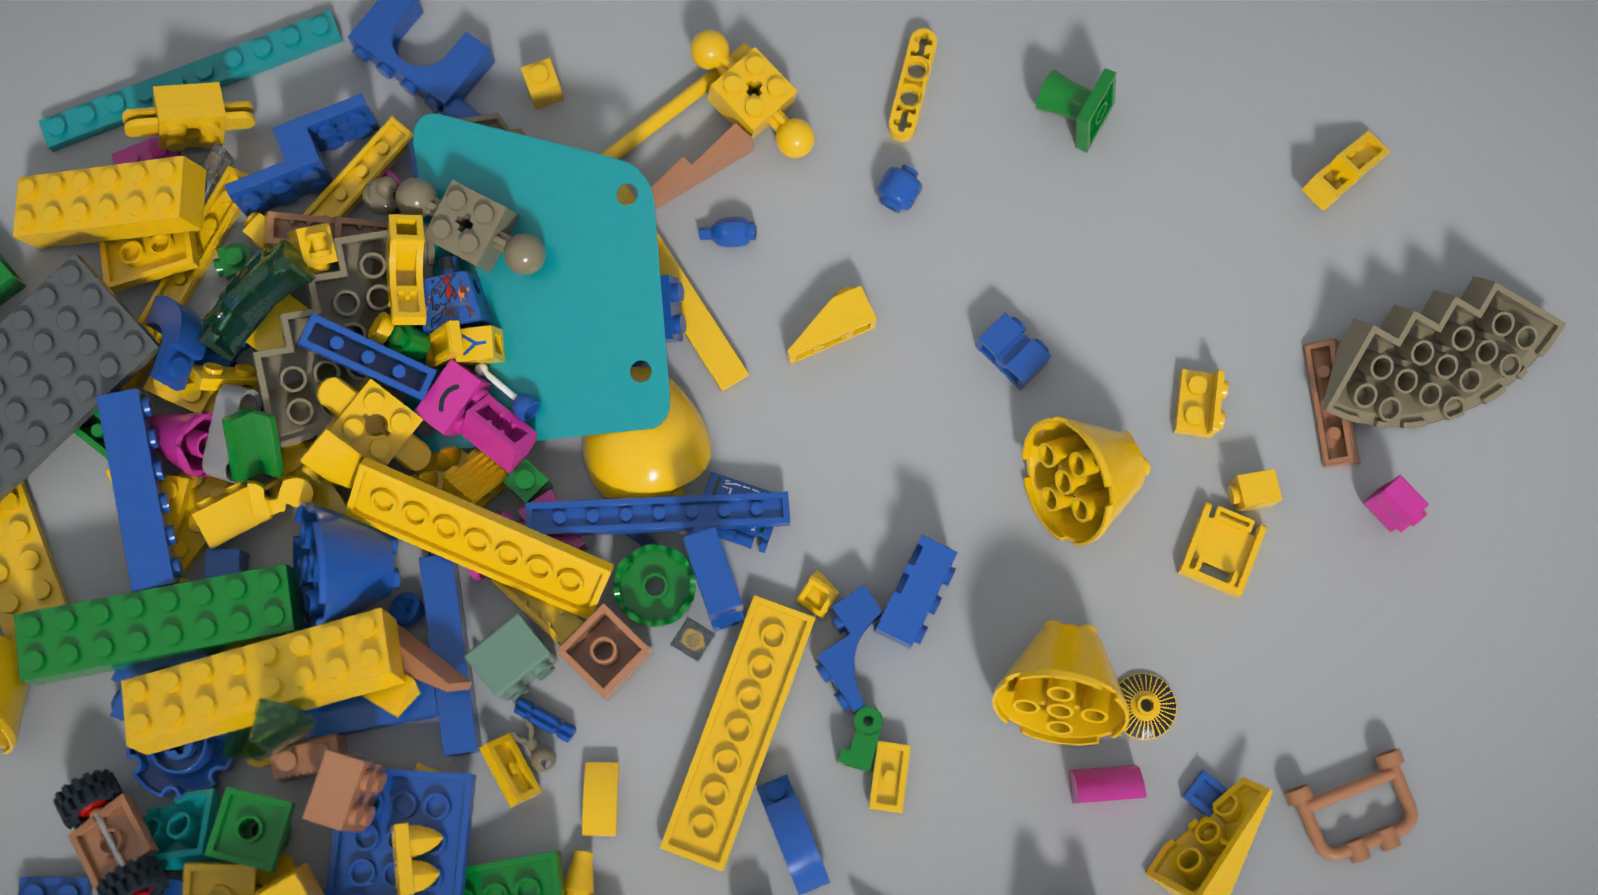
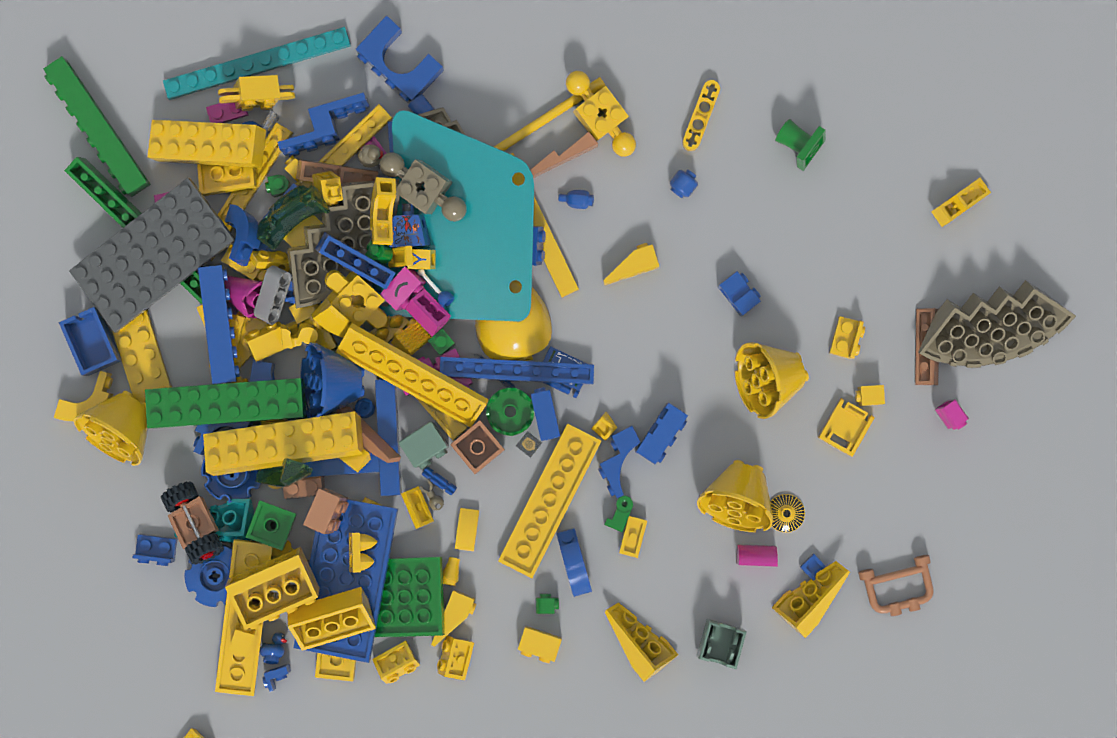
camera: 10 degrees right, 10 degrees up
(252, 444) = (285, 304): green panel -> none
(381, 328) = (364, 243): yellow tile -> none
(542, 83) = (472, 91): yellow brick -> none

